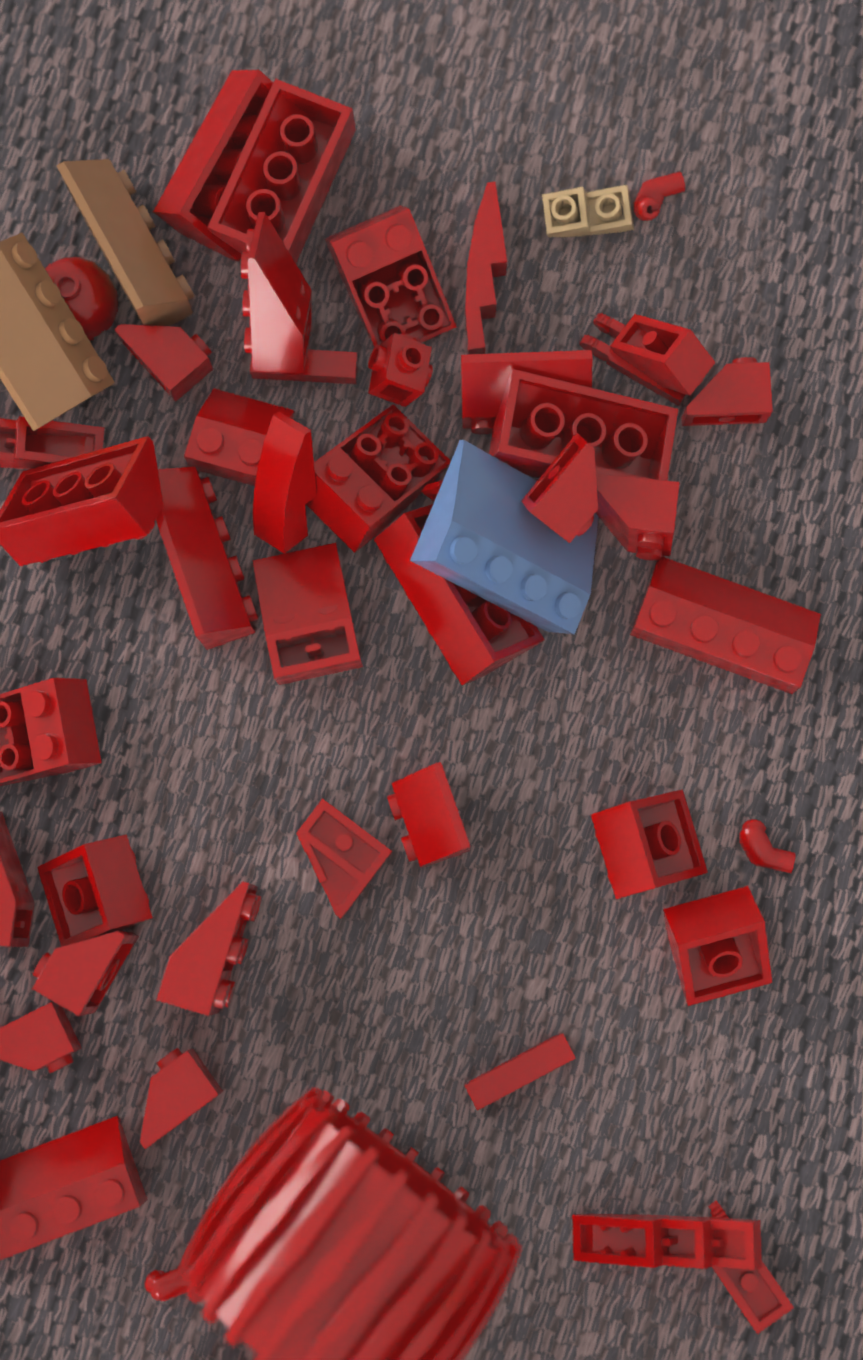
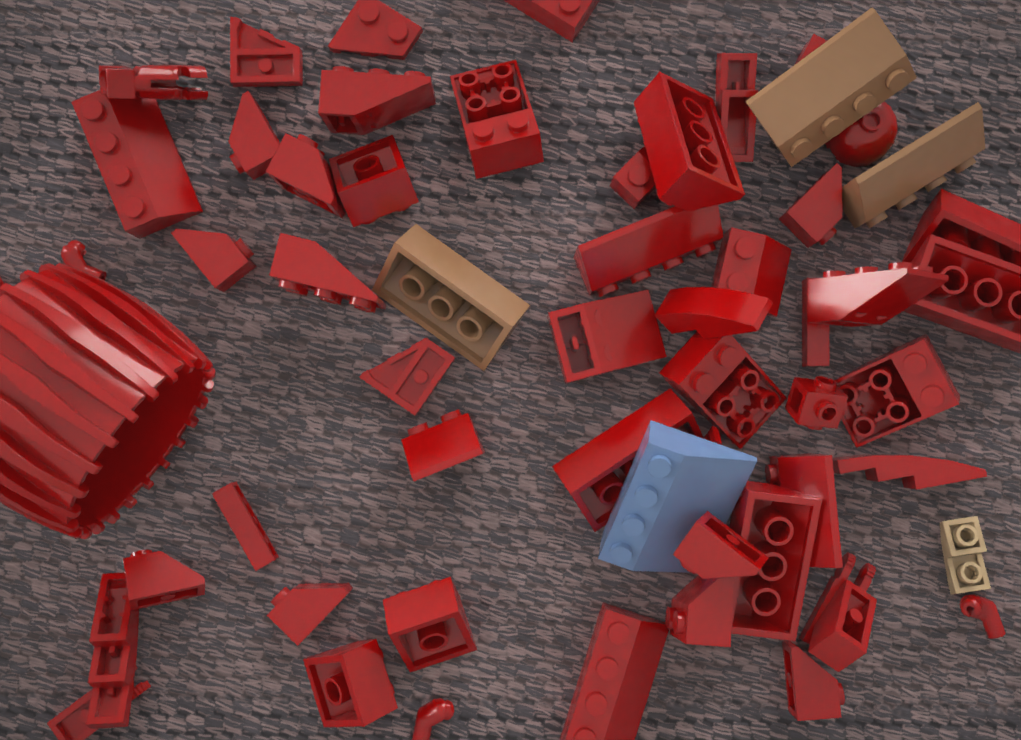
camera: 85 degrees right, 5 degrees up
(117, 568) = (634, 179): none -> red slope
(247, 801) = (449, 296): none -> medium nougat slope
(581, 1180) = (159, 579): none -> red slope
(622, 995) = (305, 606): none -> red slope

